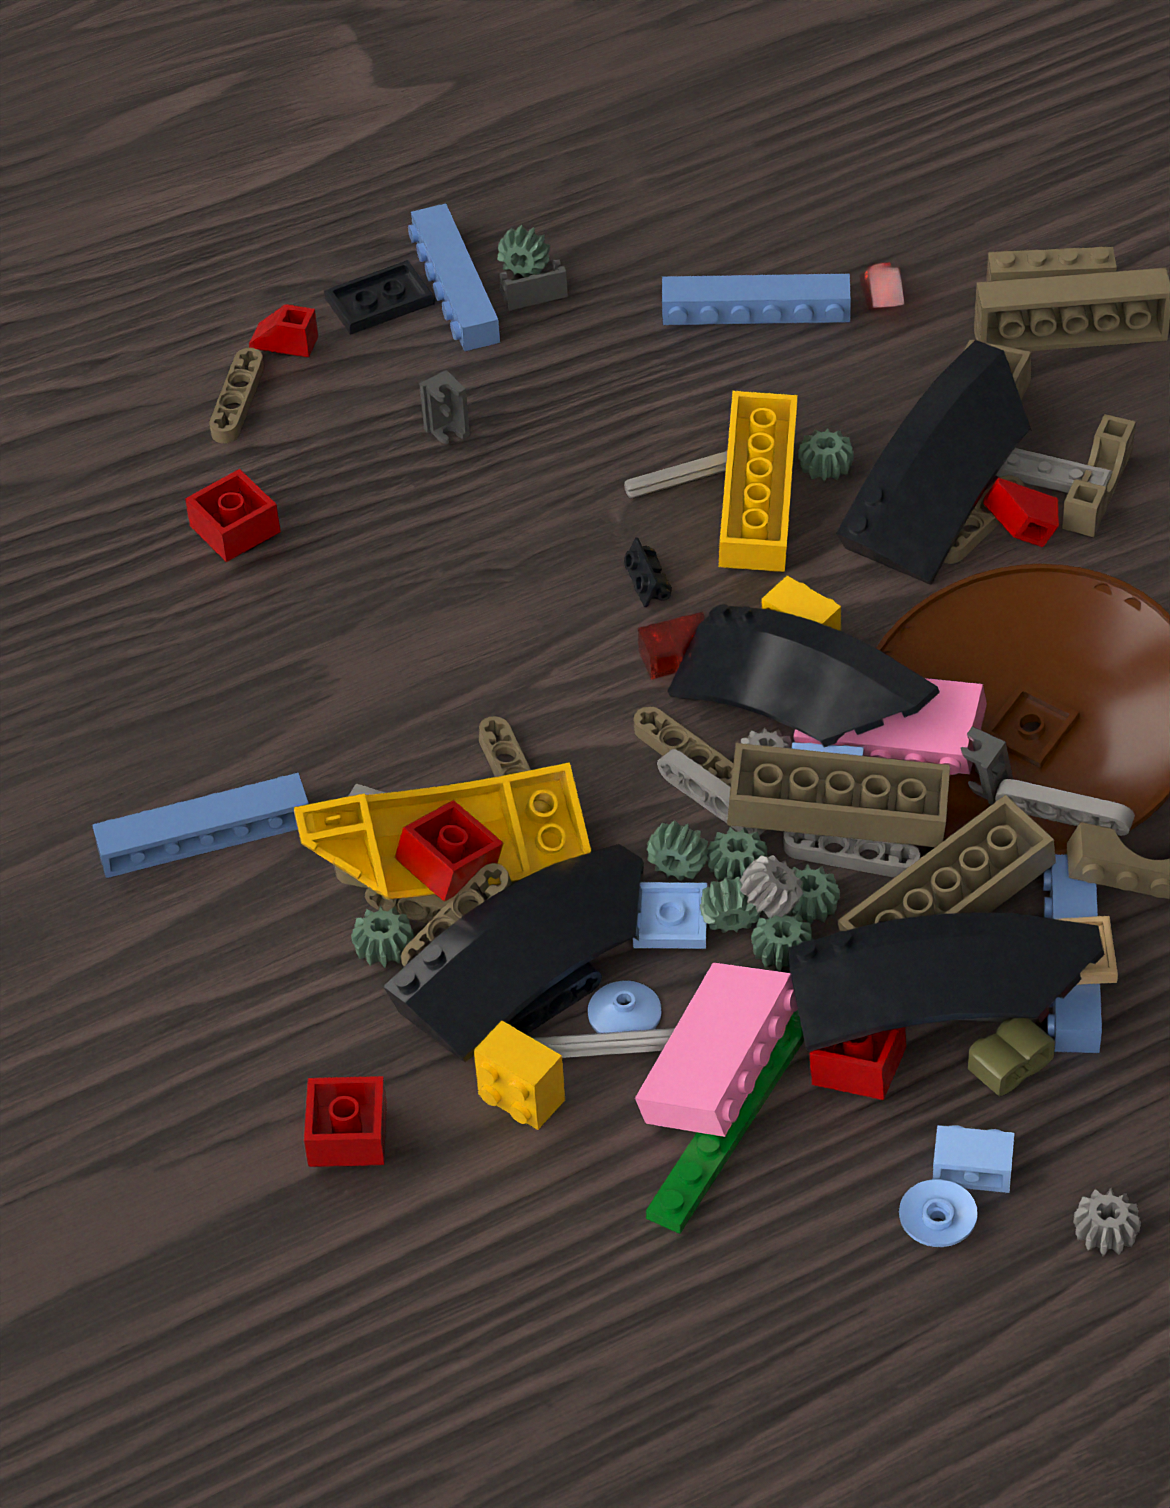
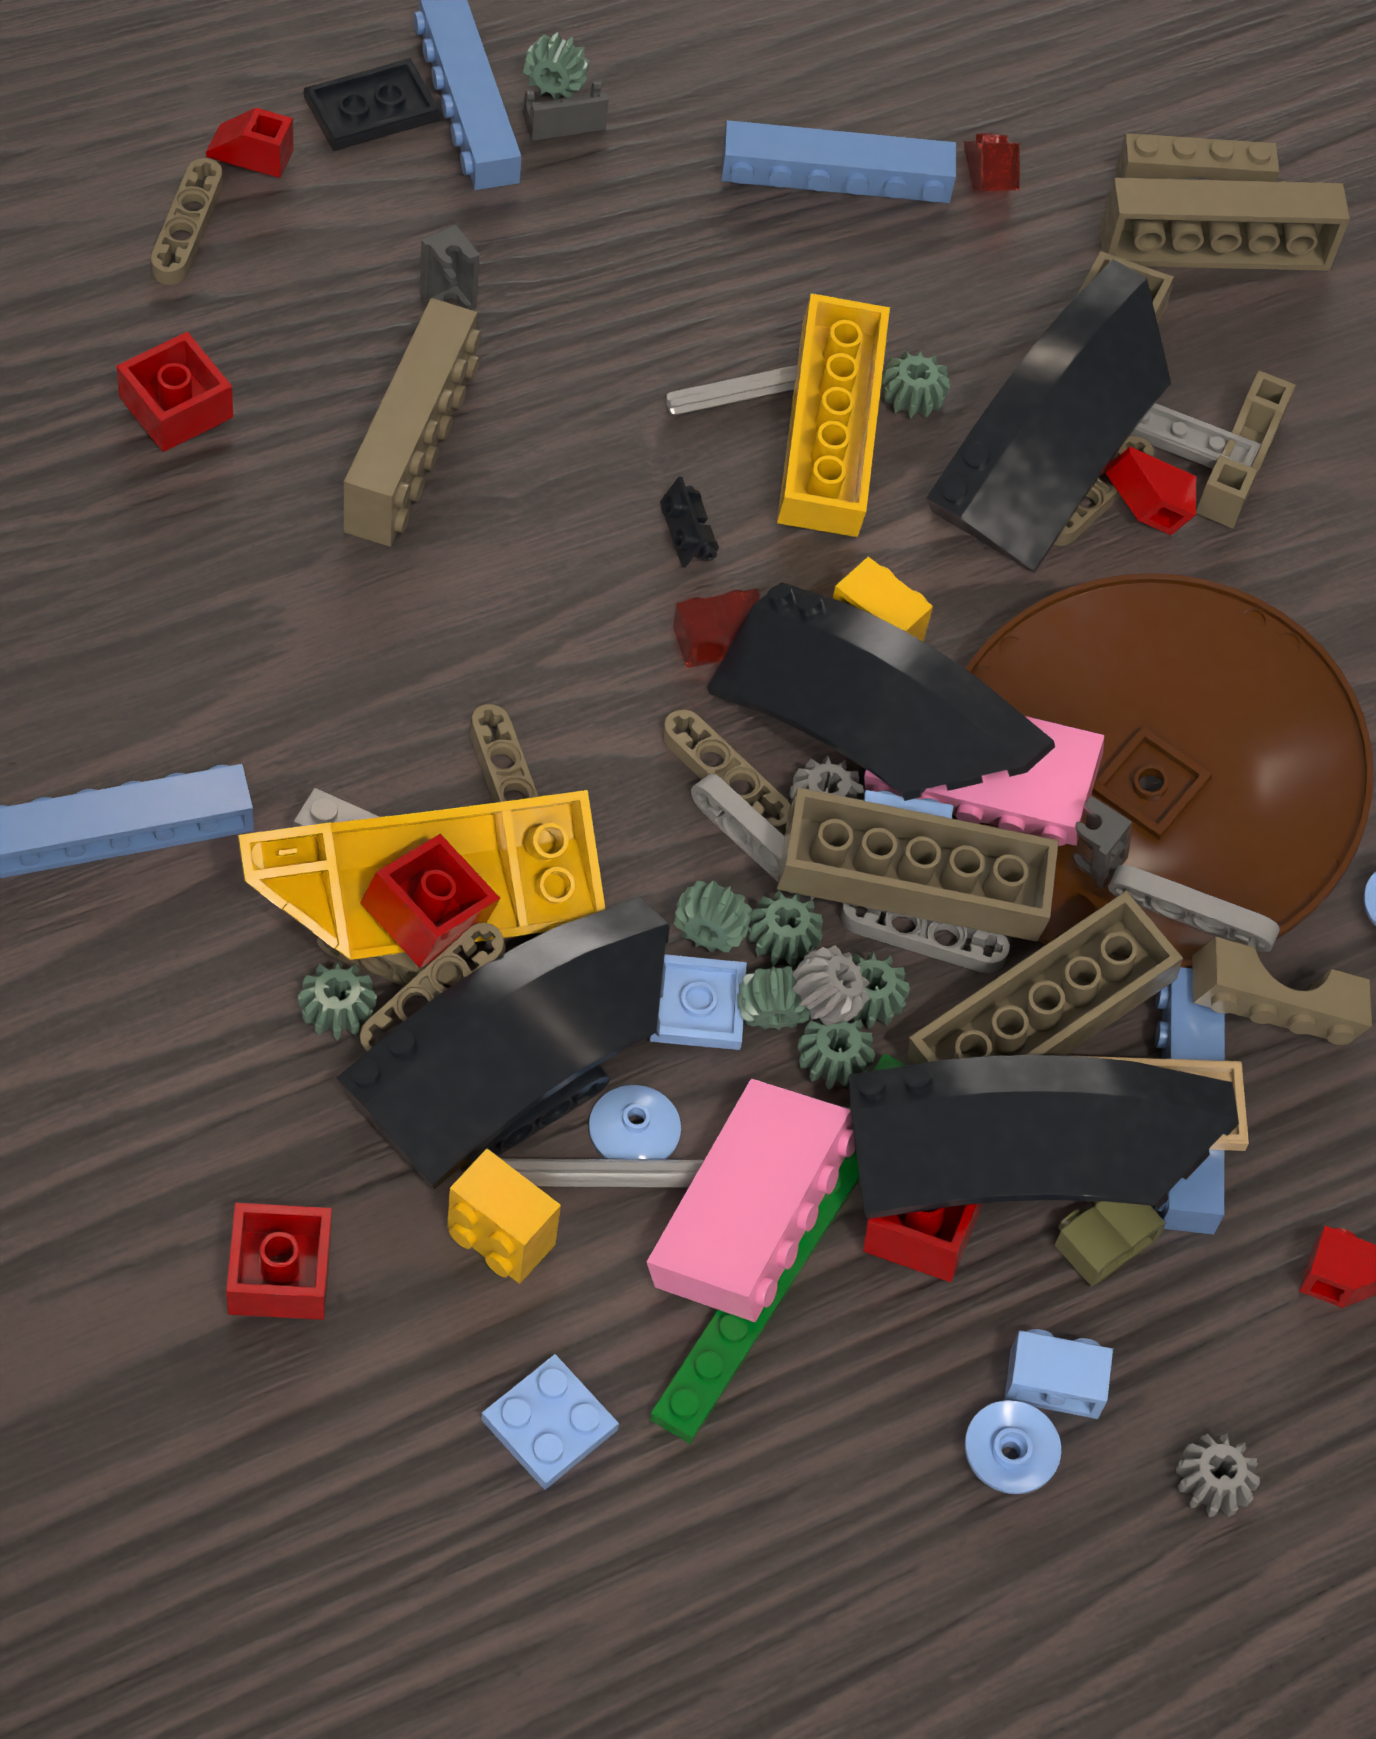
camera: 10 degrees left, 10 degrees up
(419, 519) = (411, 423): none -> dark tan brick
(566, 1224) = (549, 1421): none -> light blue plate

